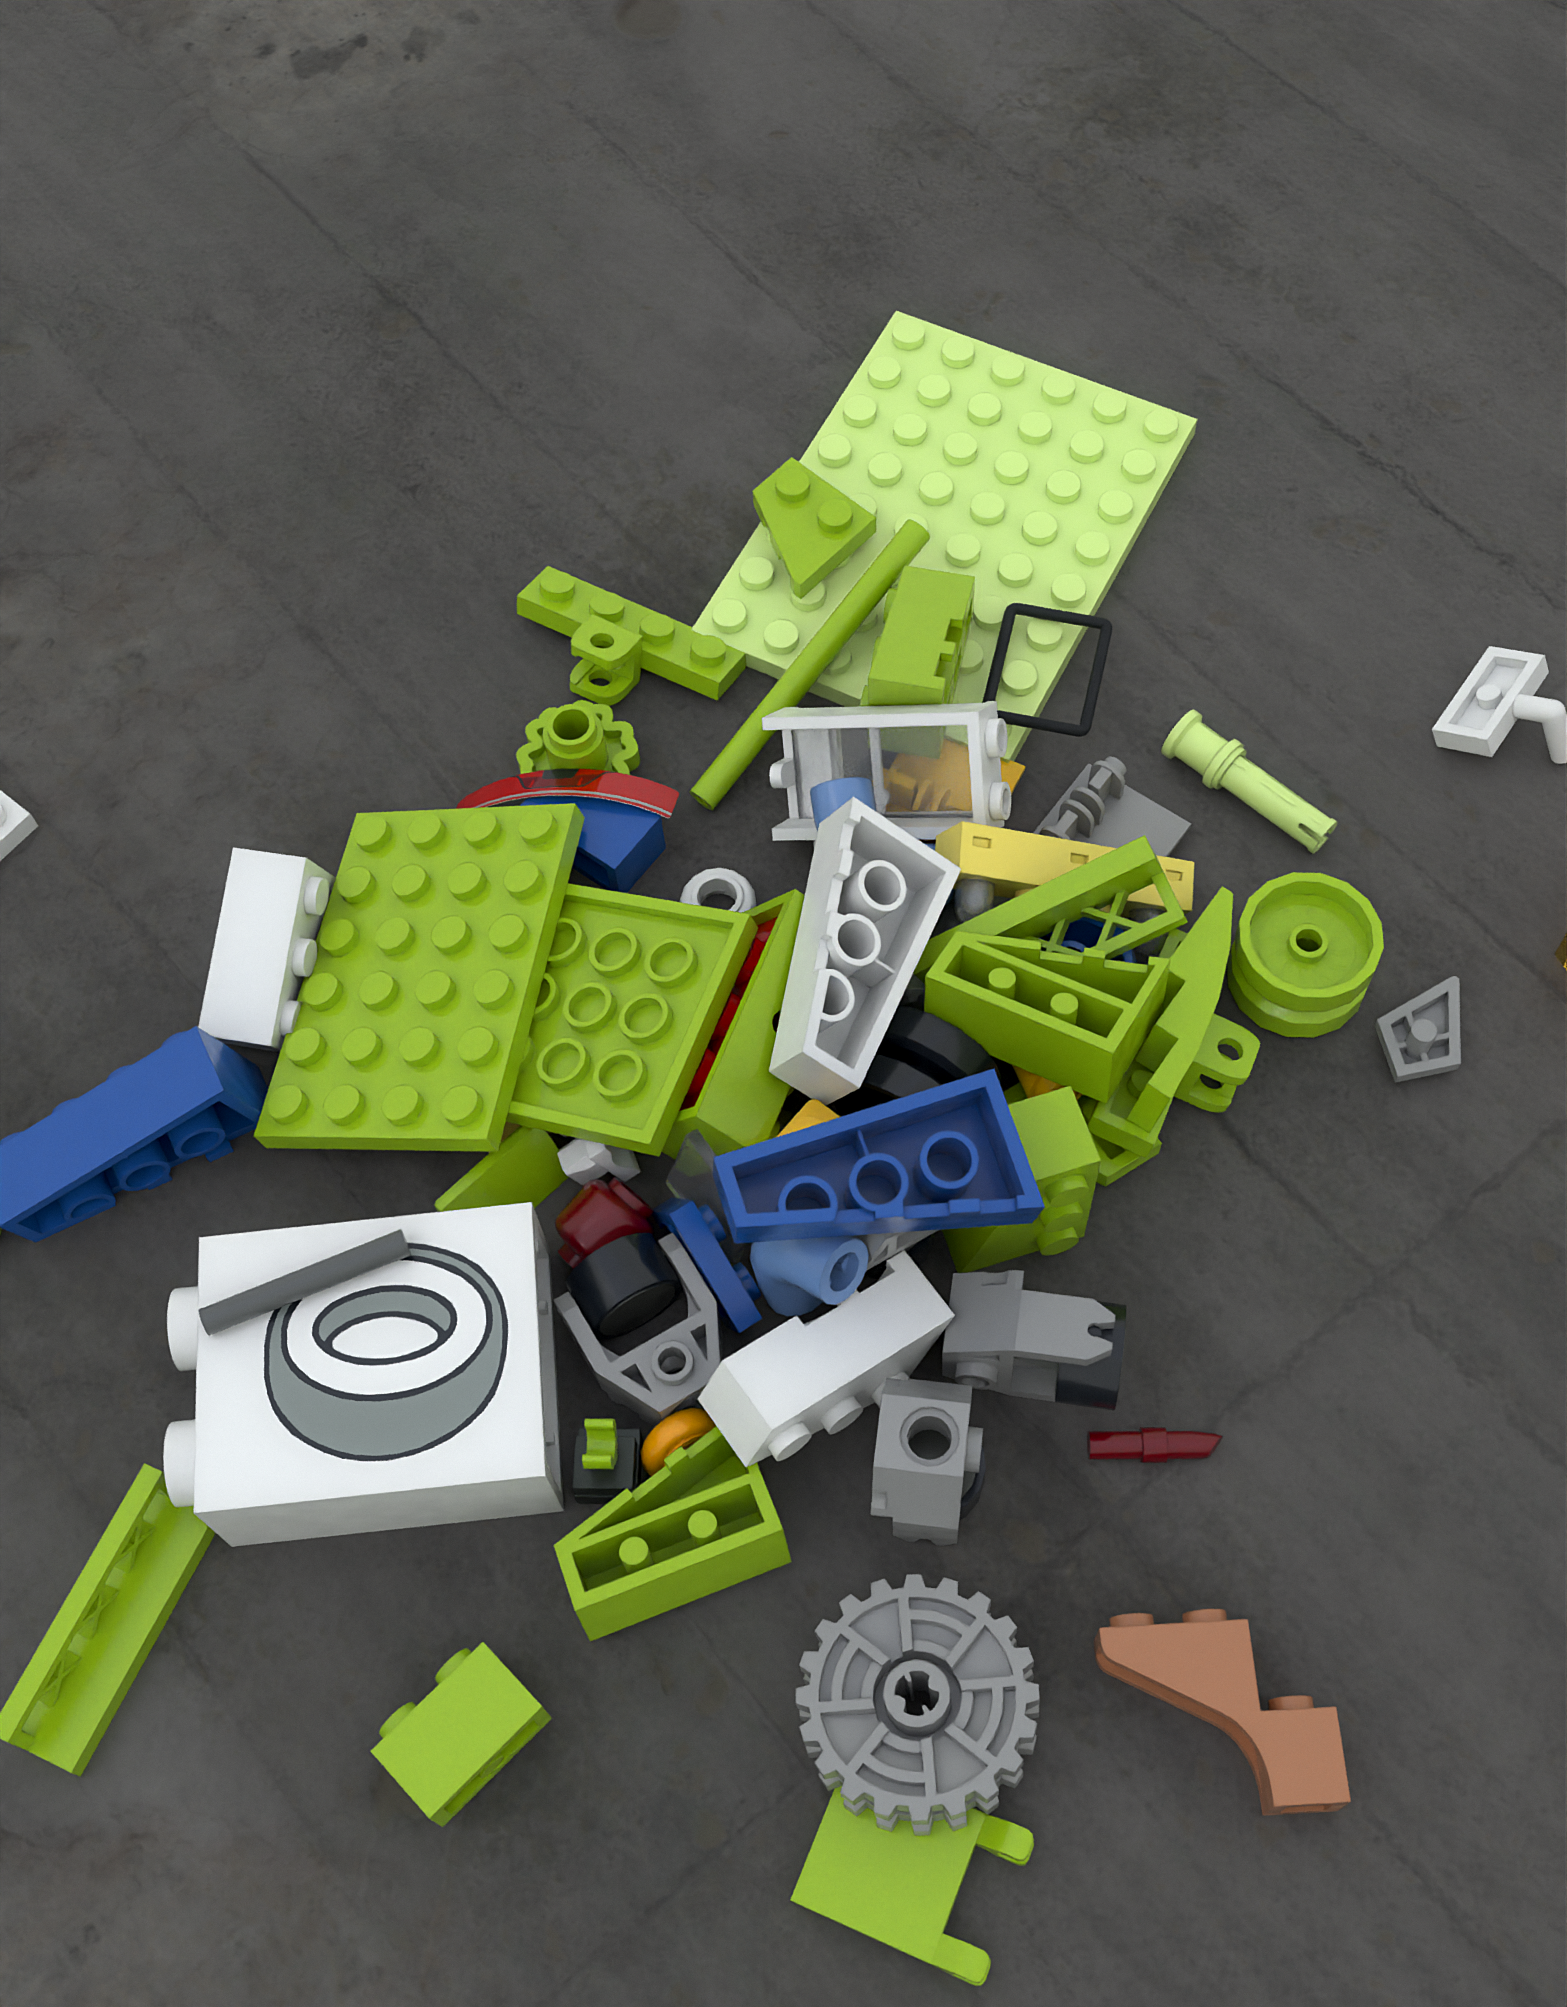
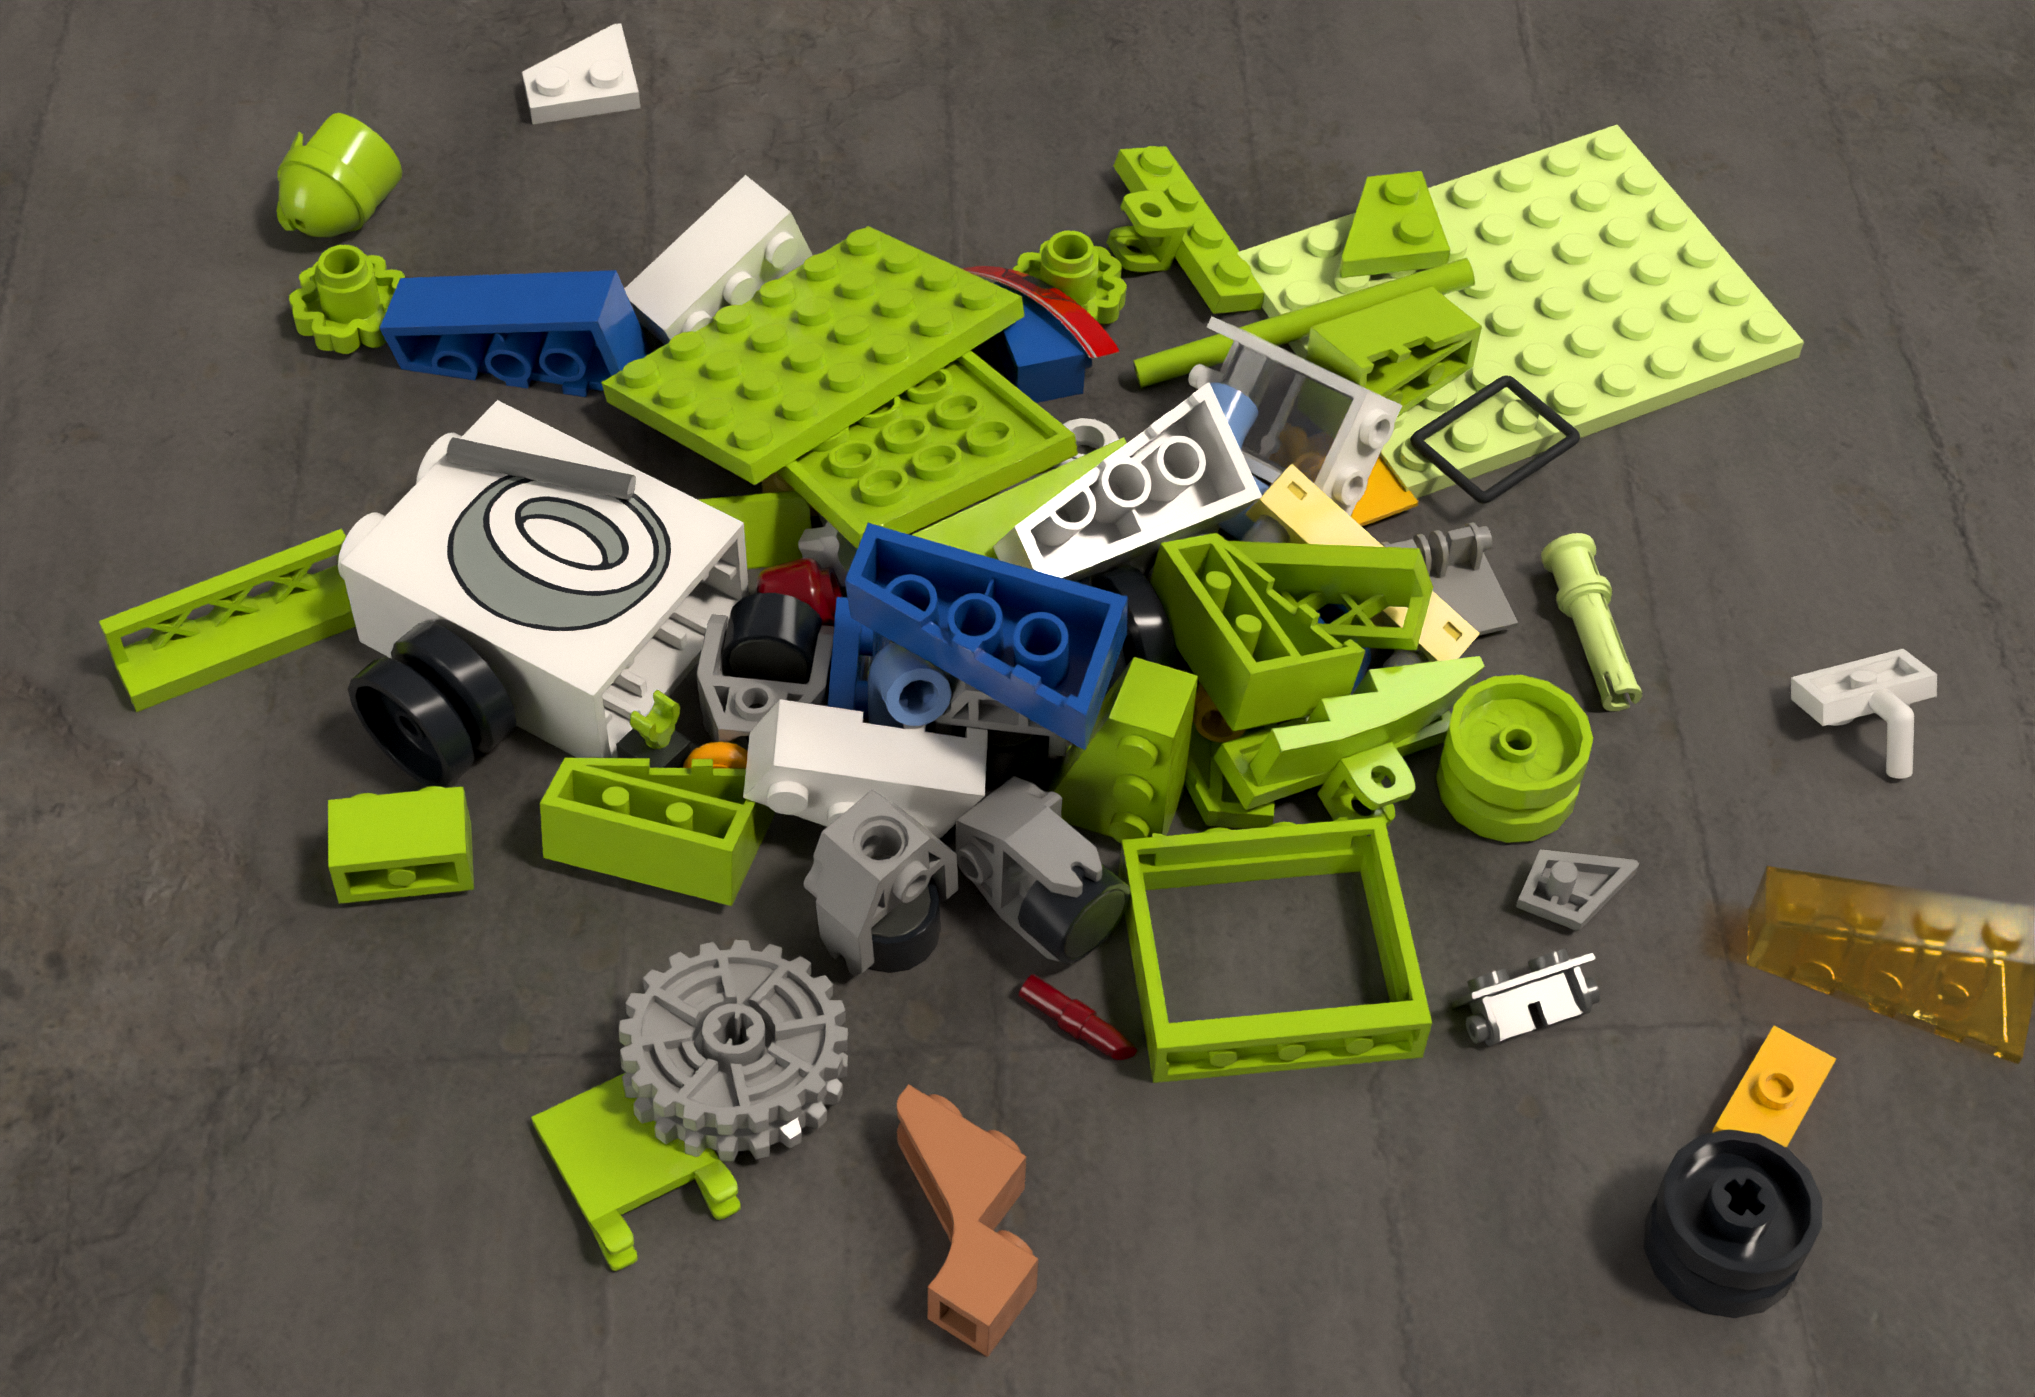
camera: 30 degrees right, 10 degrees down
(381, 1578) = (432, 705): none -> black wheel
(1331, 1178) = (1286, 1038): none -> lime window
(1482, 1134) = (1501, 1003): none -> hinge

